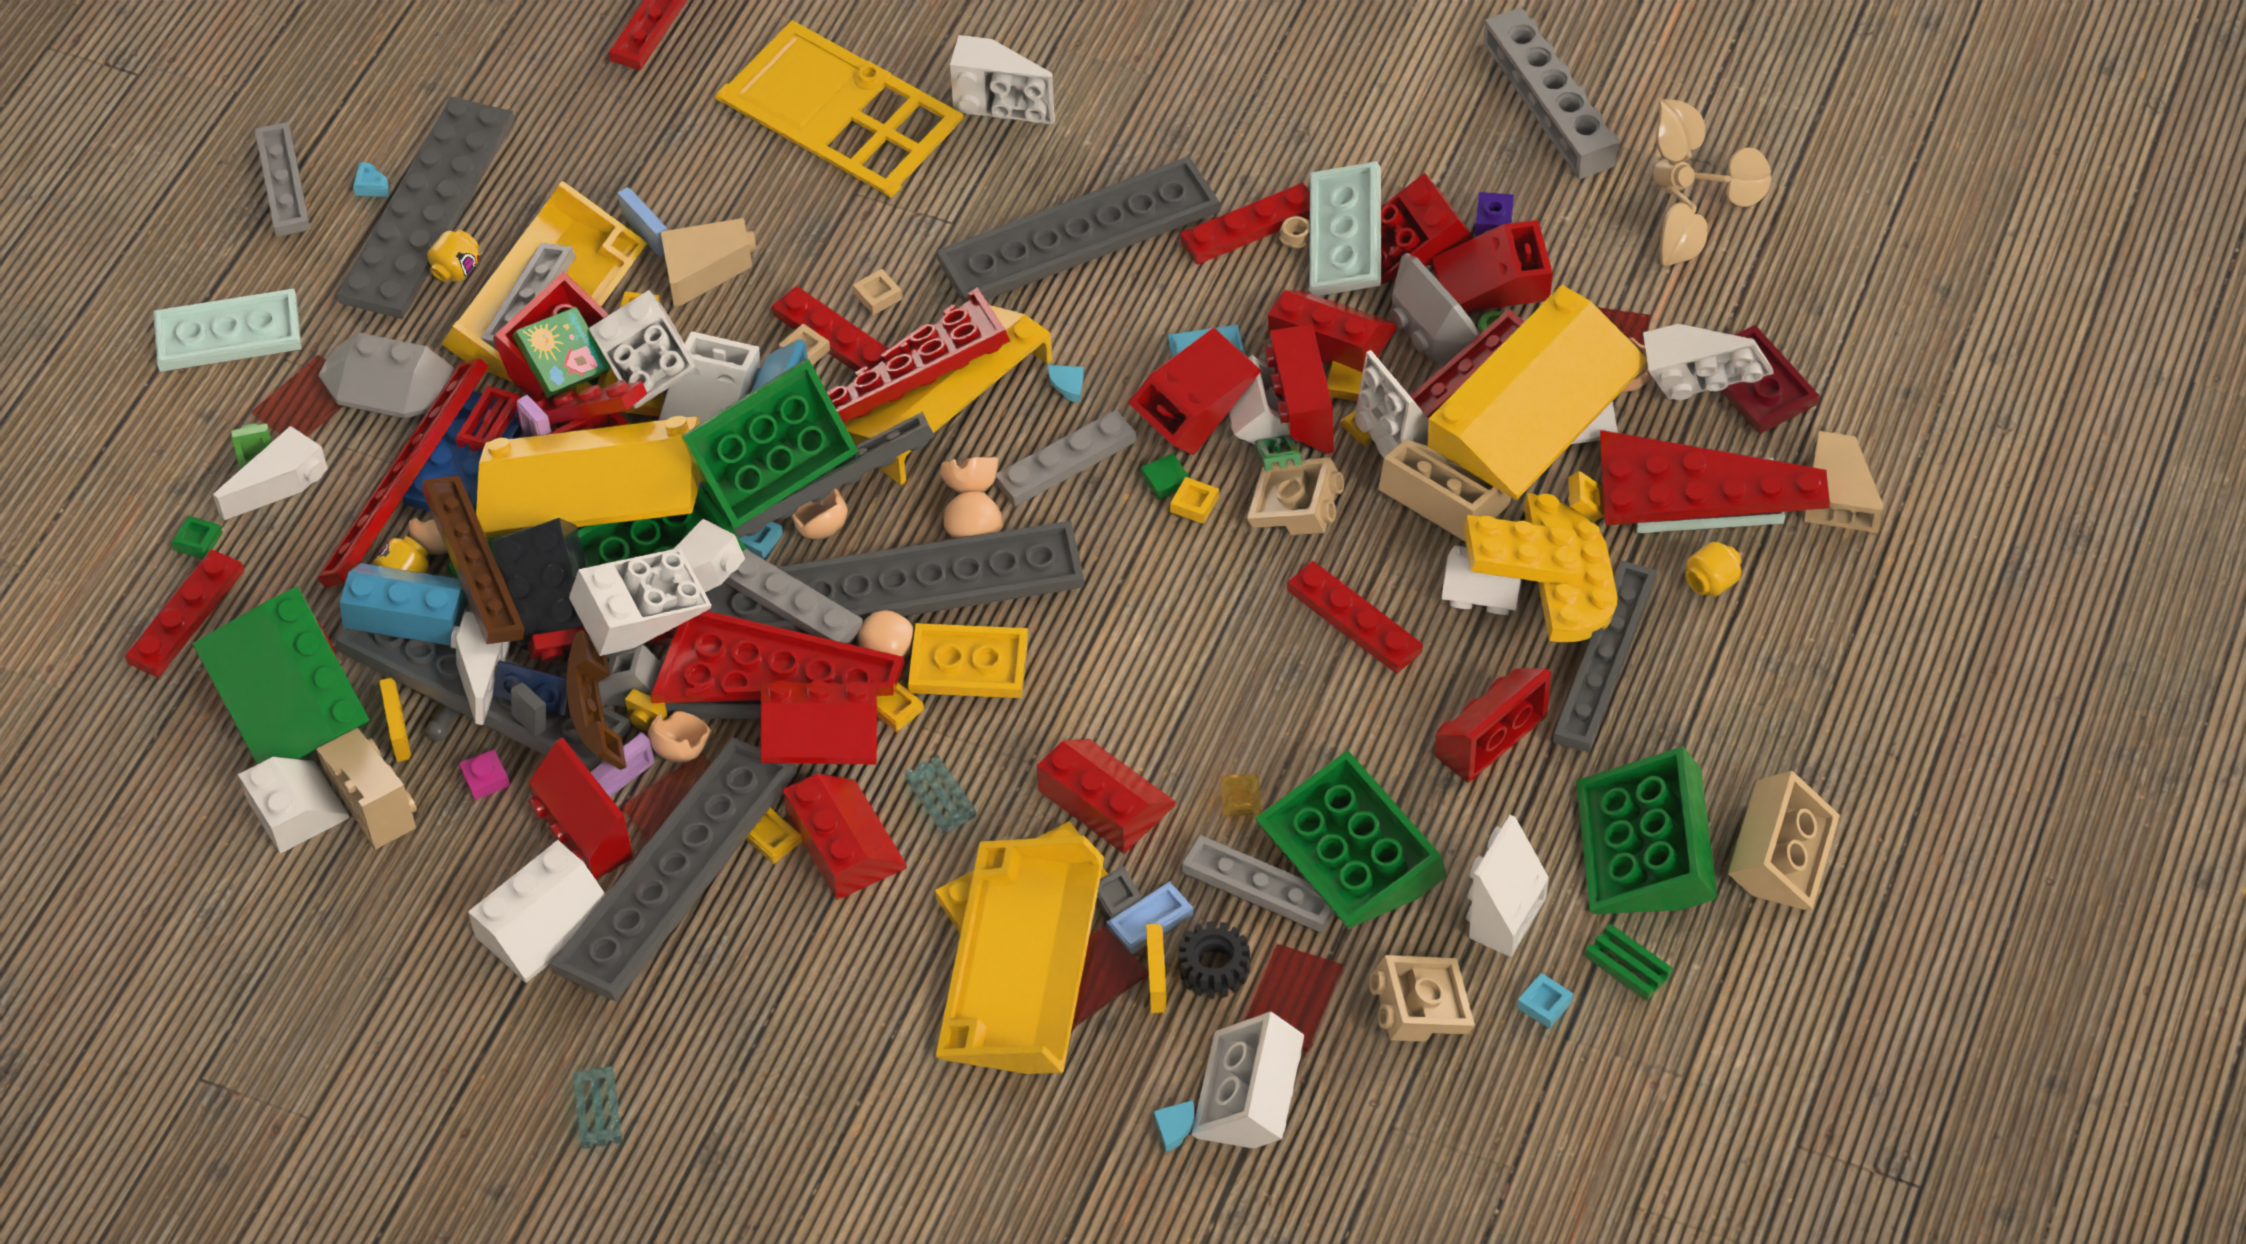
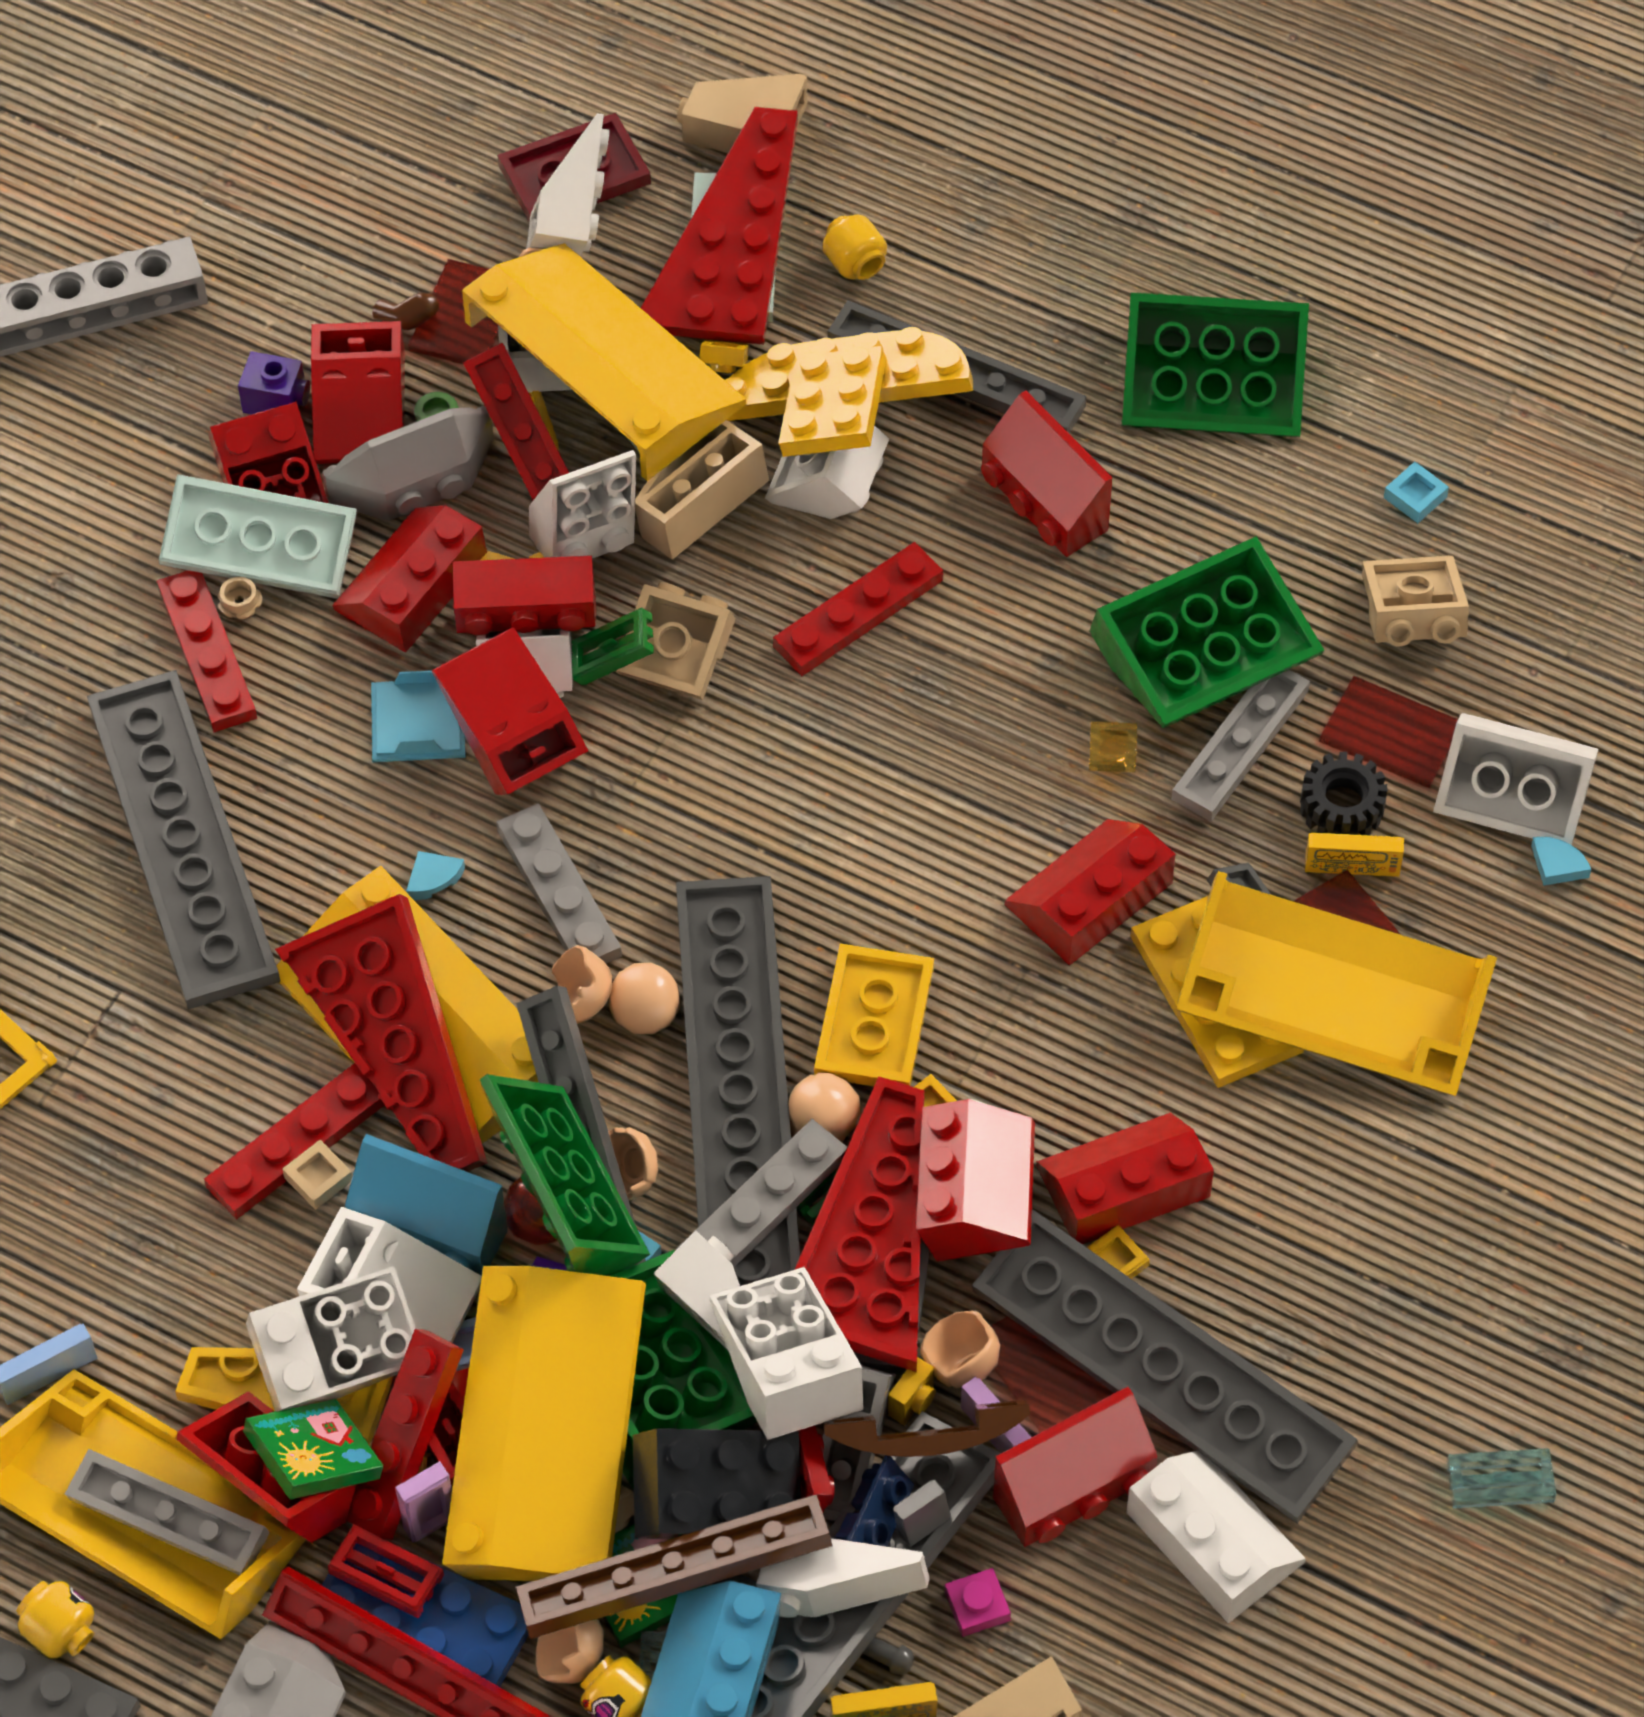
camera: 85 degrees left, 5 degrees up
(706, 256) = (130, 1291): tan slope -> none
(877, 291) = (237, 1080): tan plate -> none
(926, 771) = (1065, 1051): clear light blue tile -> none
(1161, 907) = (1272, 858): light blue tile -> none
(1164, 475) = (609, 781): green tile -> none
(1194, 500) = (659, 750): yellow plate -> none
(1505, 889) = (1296, 495): white slope -> none
(1586, 287) = (411, 312): none -> reddish brown arm
(1633, 957) = (1382, 382): green tile -> none
(1677, 133) = (248, 189): tan plant -> none
(1784, 841) = (1233, 246): tan slope -> none

